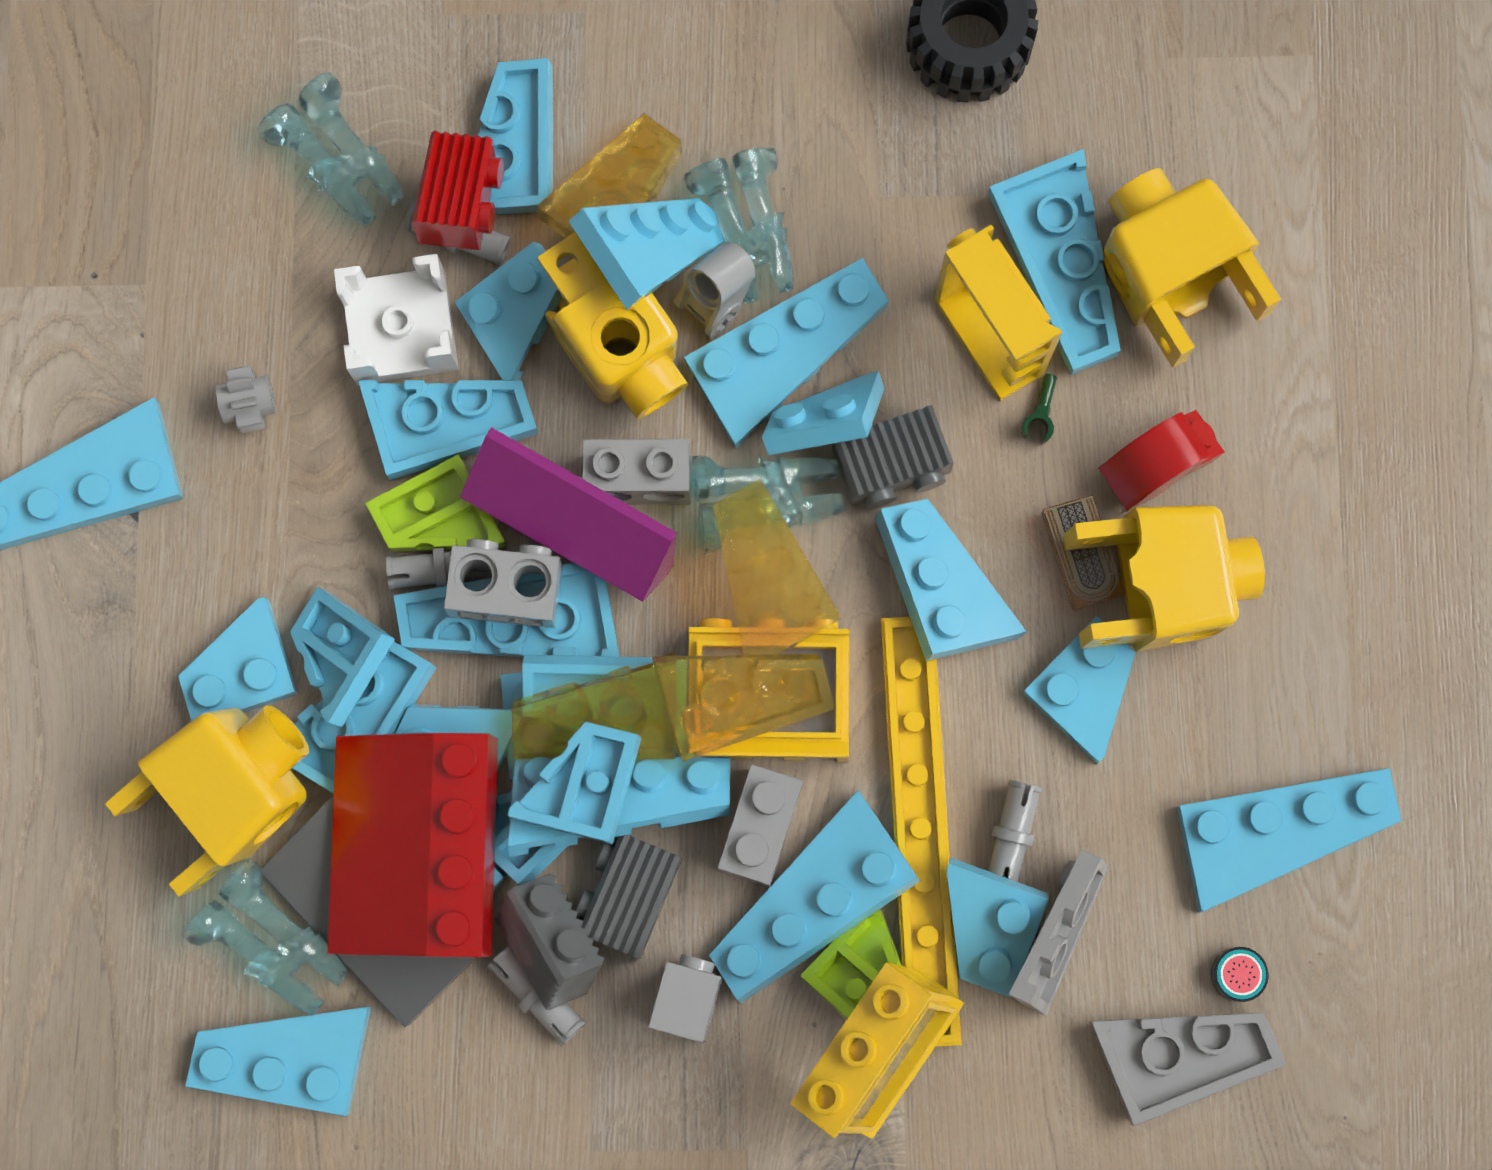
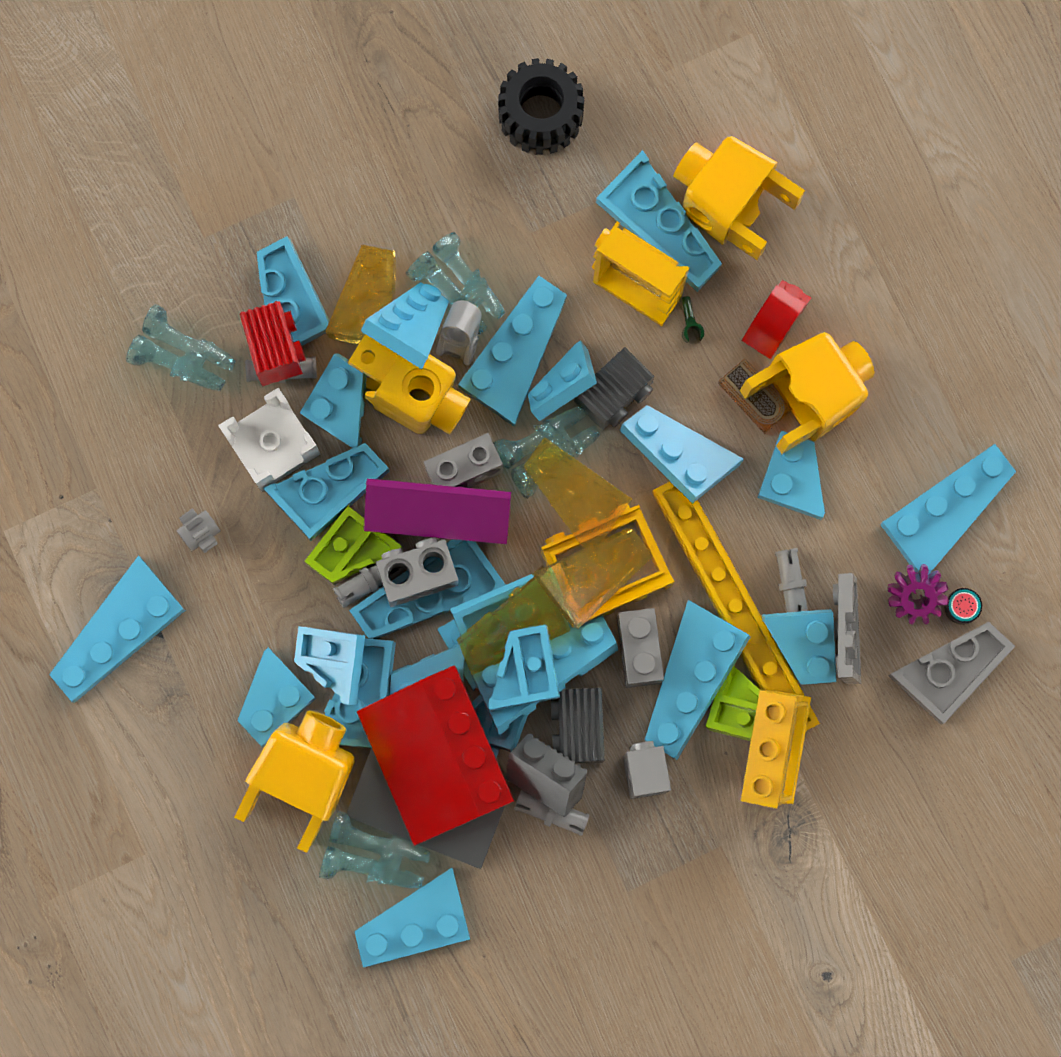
camera: 30 degrees left, 0 degrees up
(1191, 947) = (903, 598): none -> magenta gear

